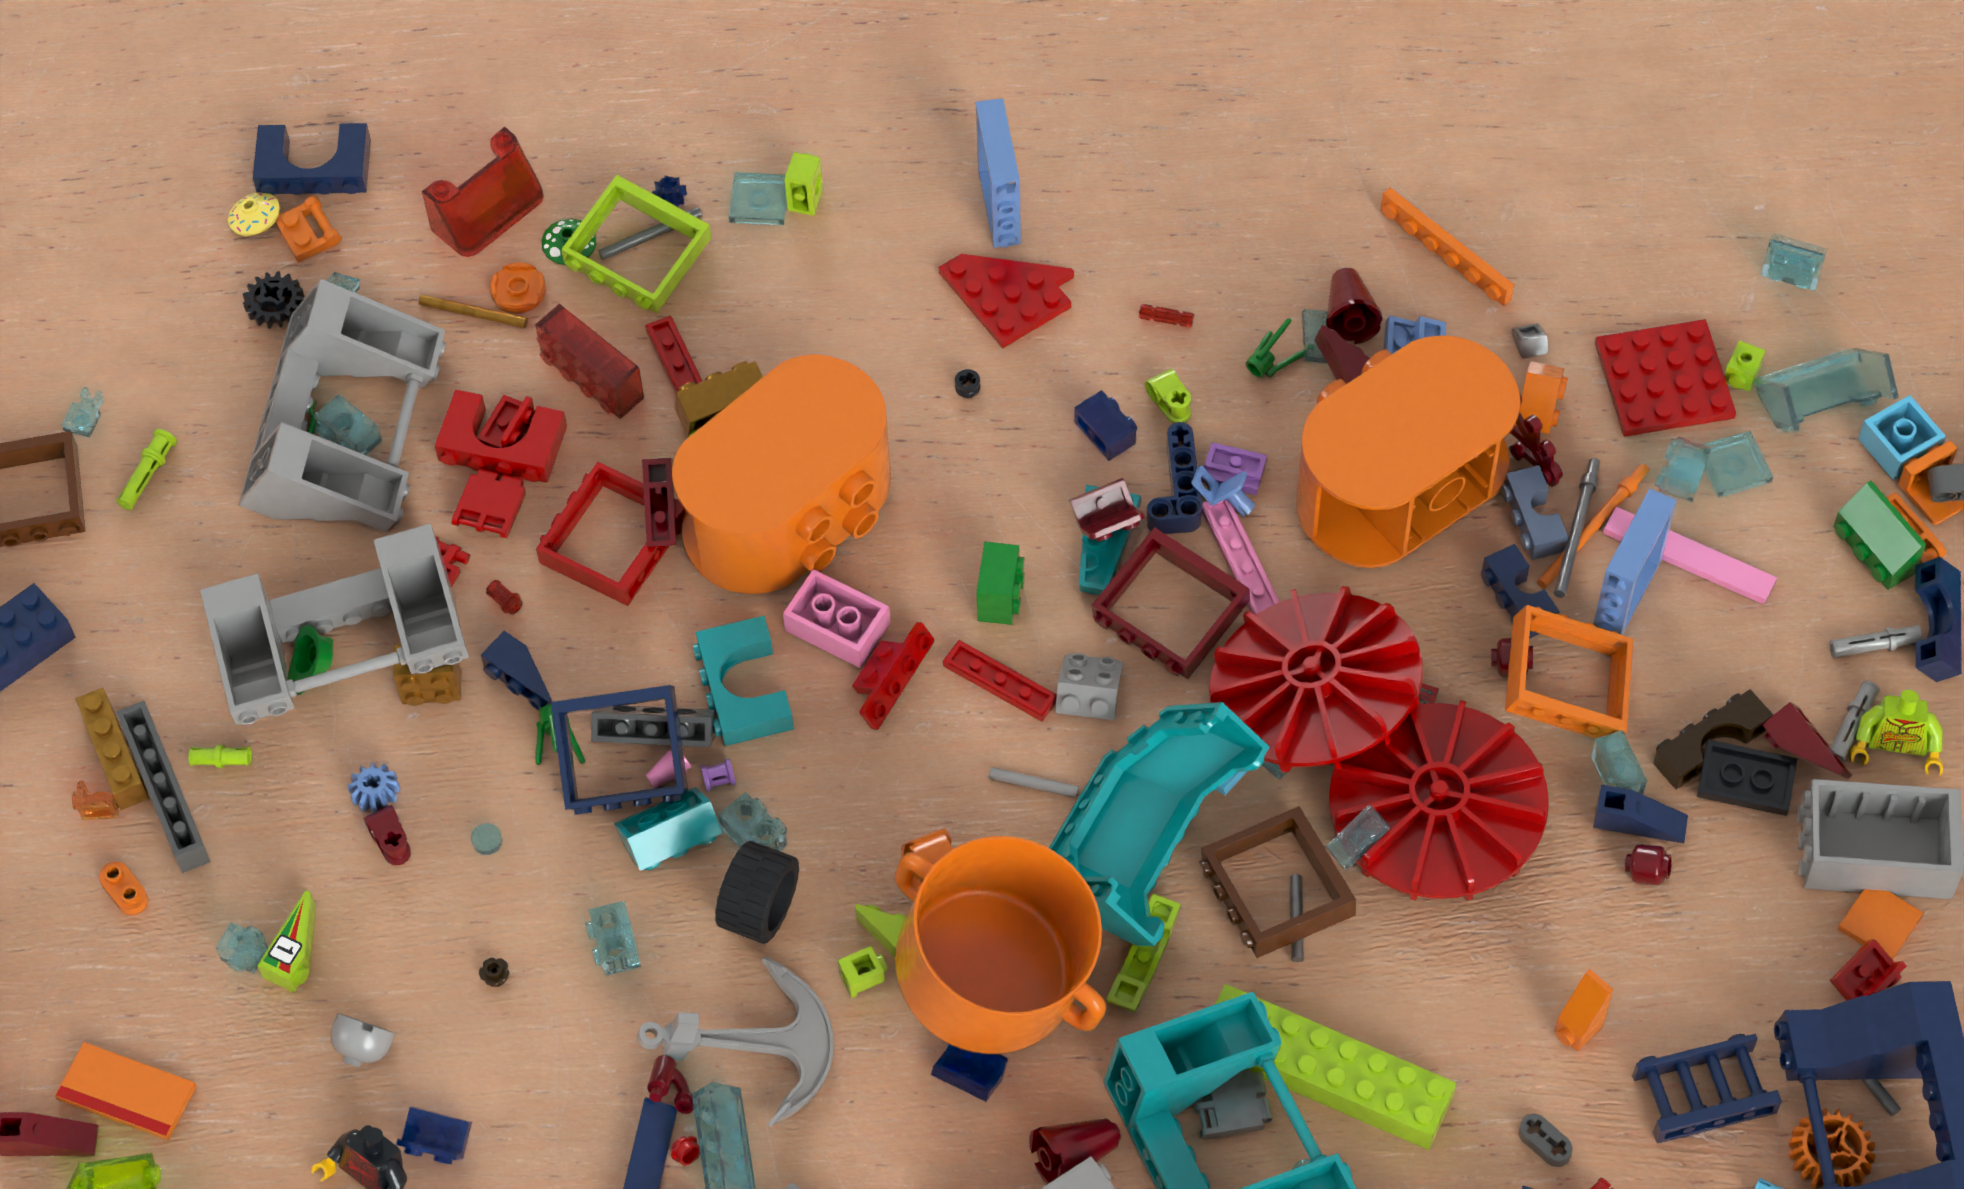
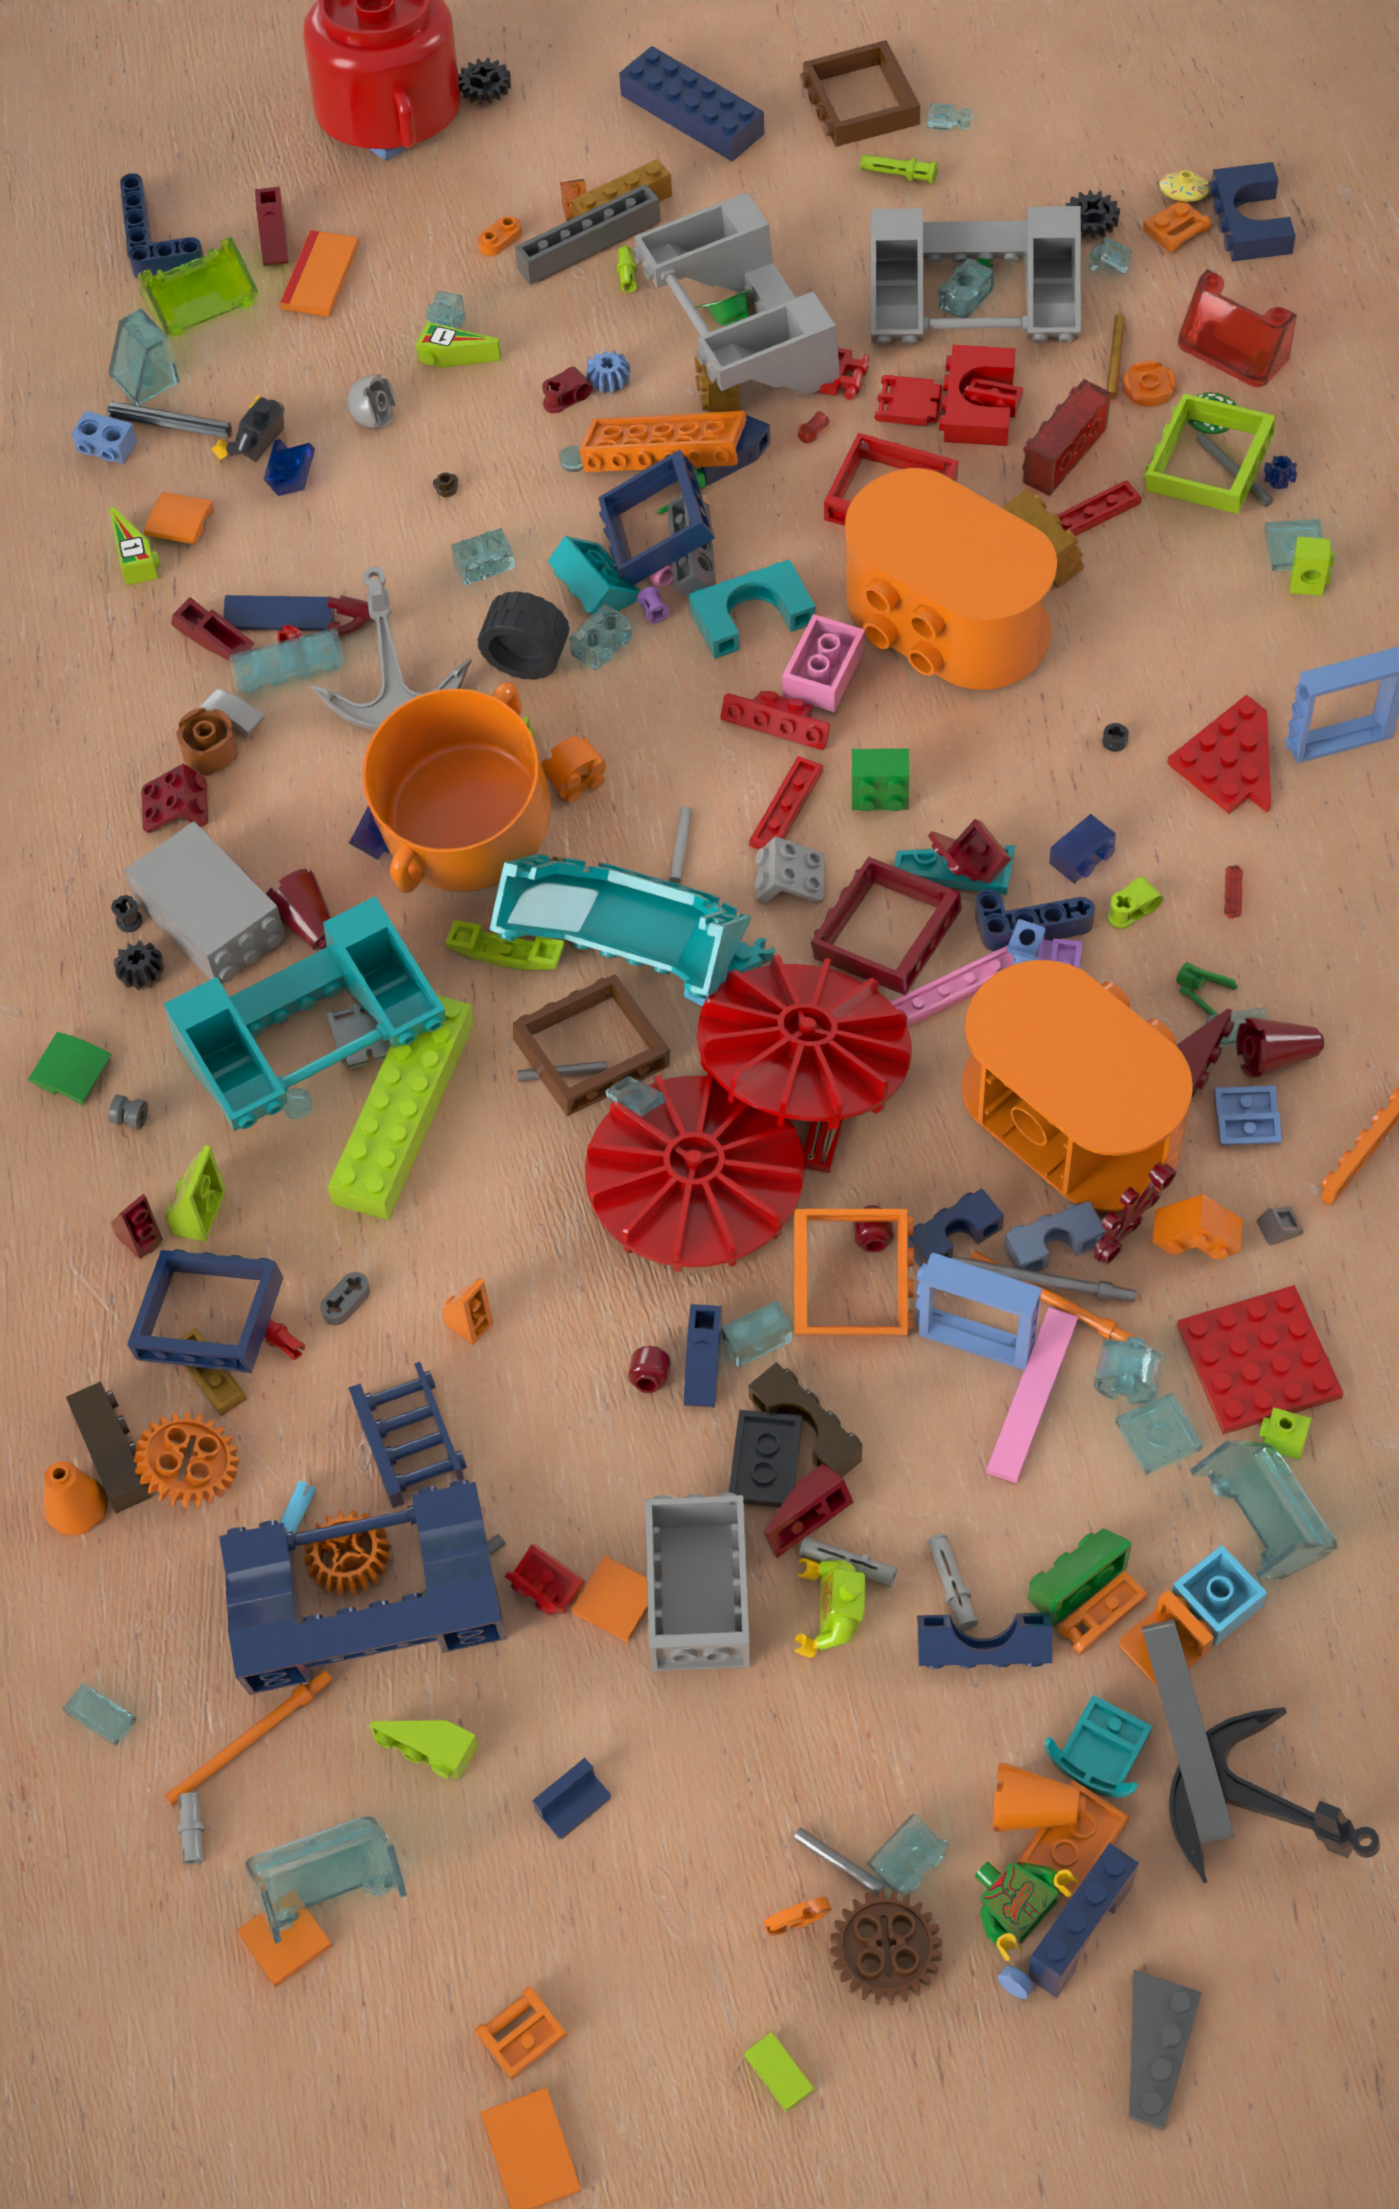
camera: 85 degrees right, 0 degrees up
(500, 735) = (645, 440): none -> orange bracket

